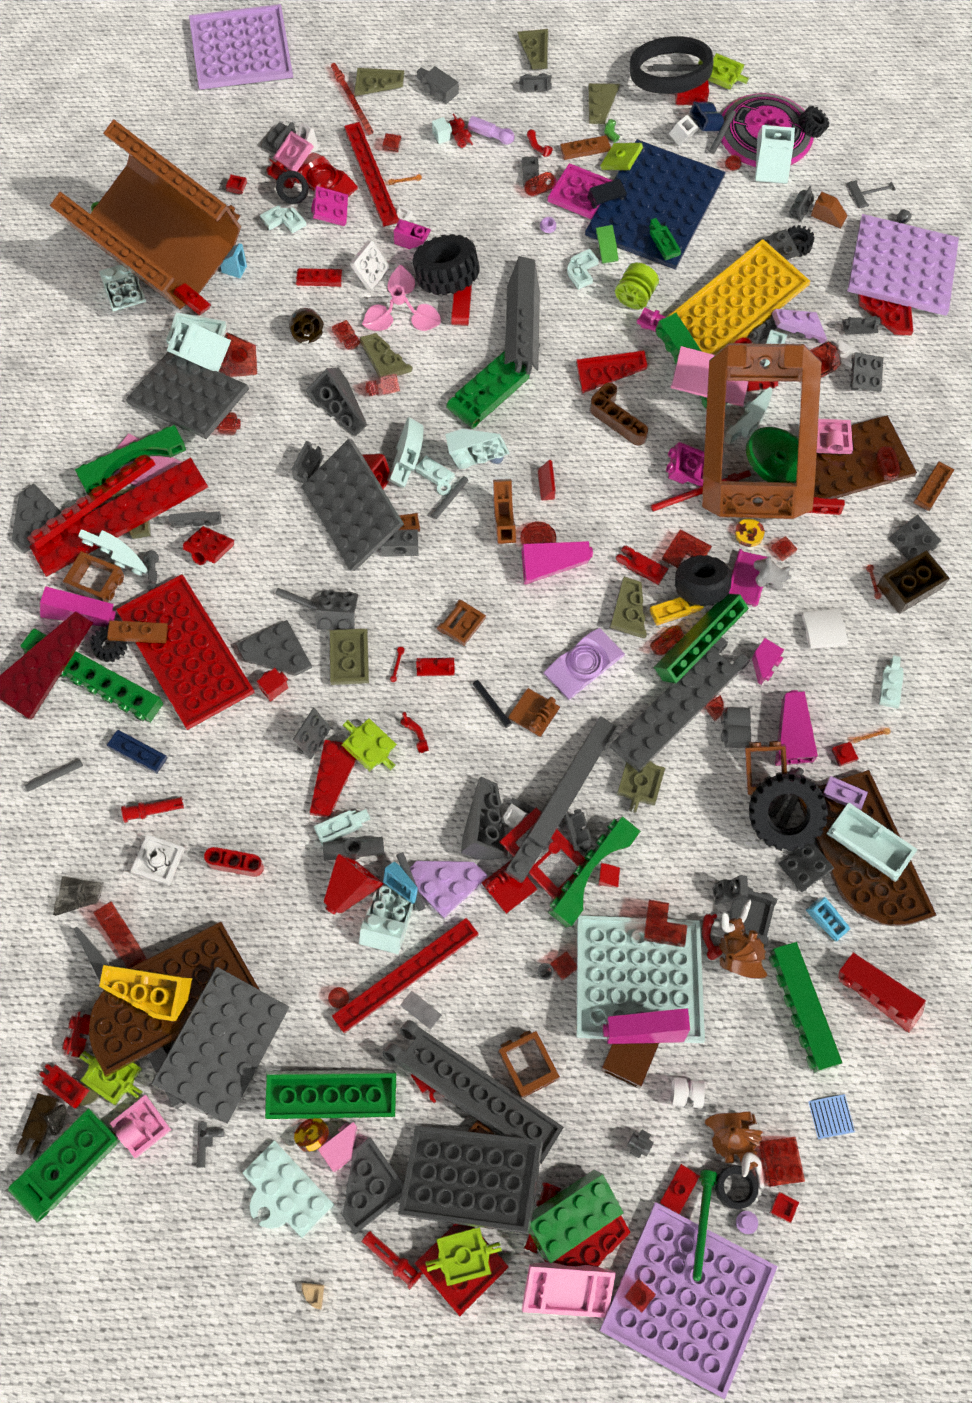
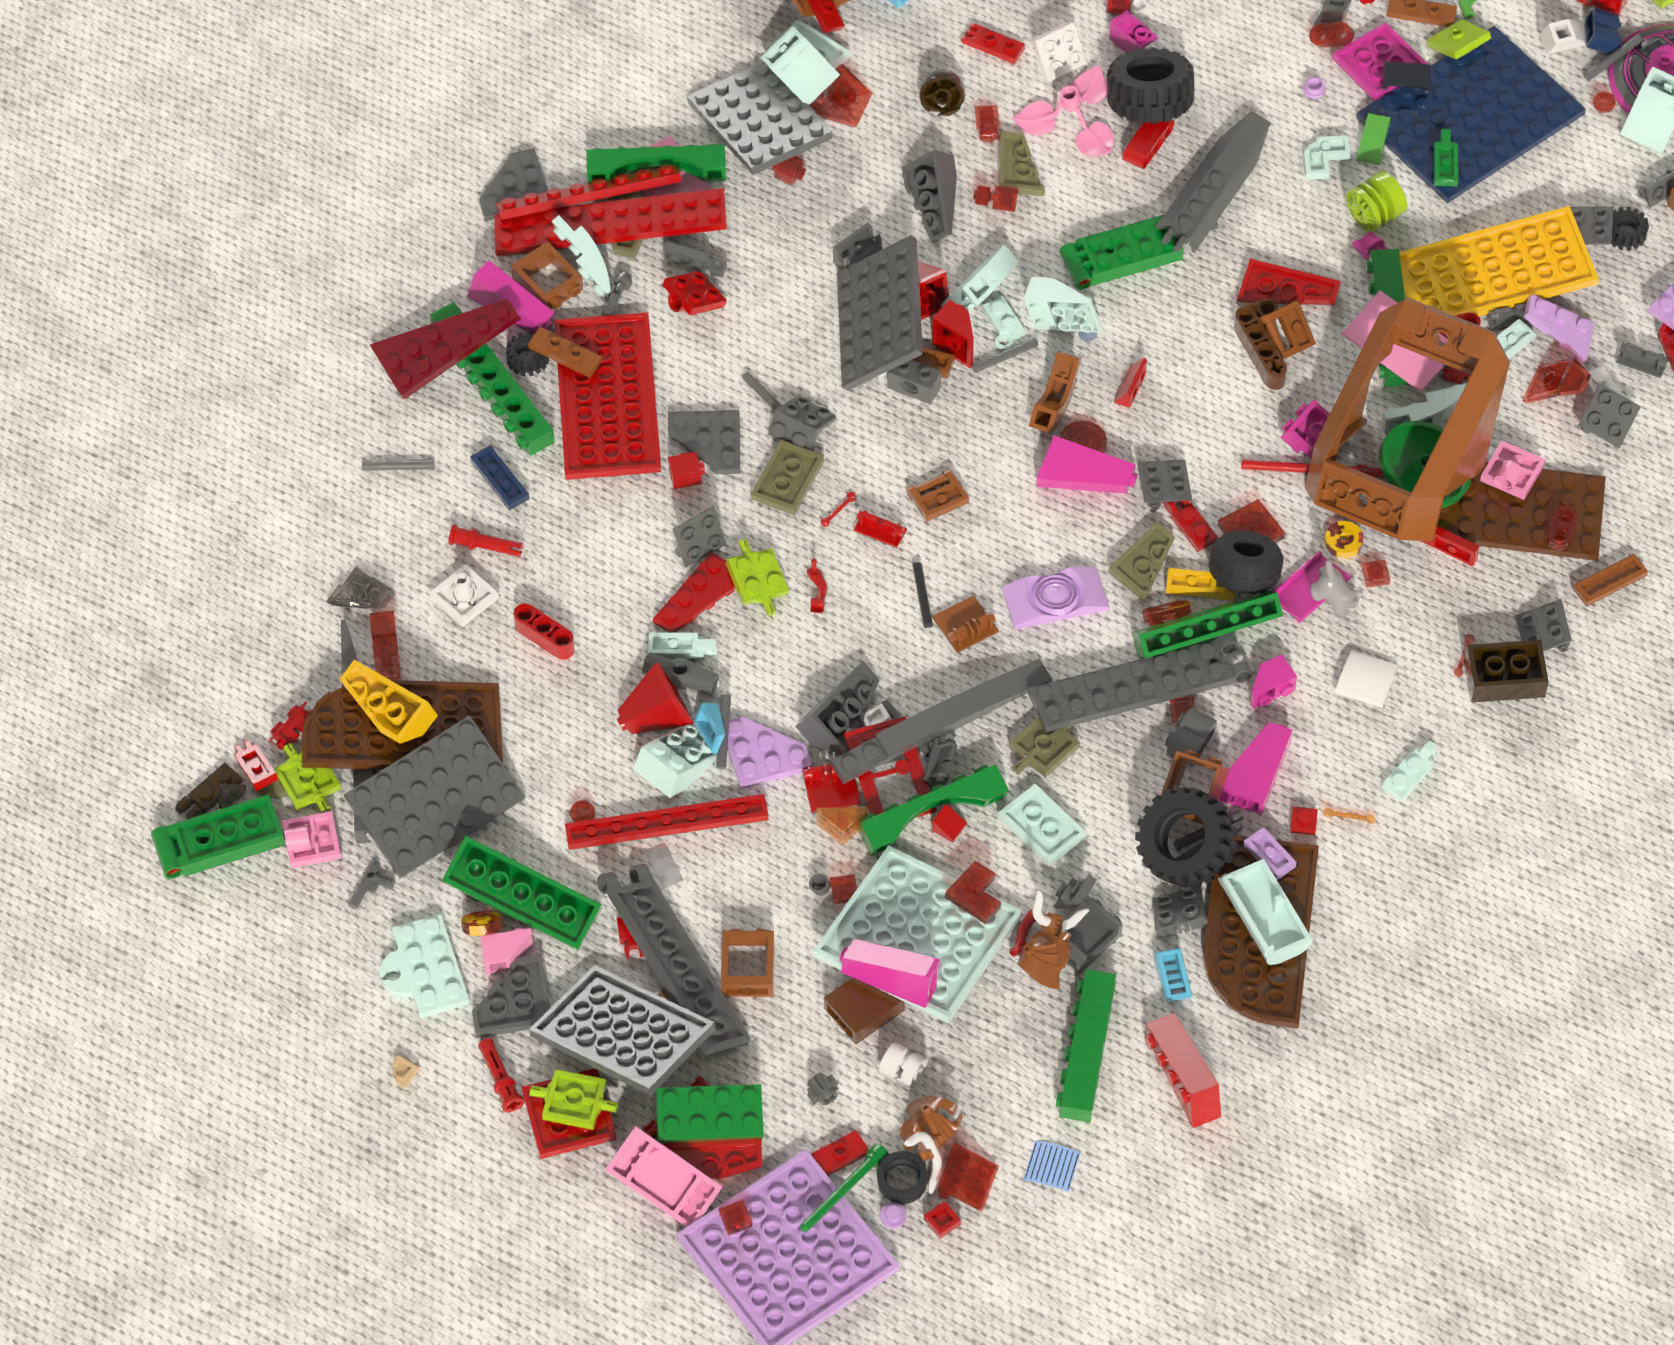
camera: 30 degrees right, 10 degrees down
(411, 496) = (953, 332): none -> red slope
(533, 913) = (841, 822): none -> clear orange slope
(612, 544) = (1164, 482): none -> dark grey hinge
(633, 395) = (1294, 327): none -> dark orange plate
(674, 844) = (1042, 825): none -> light aqua plate

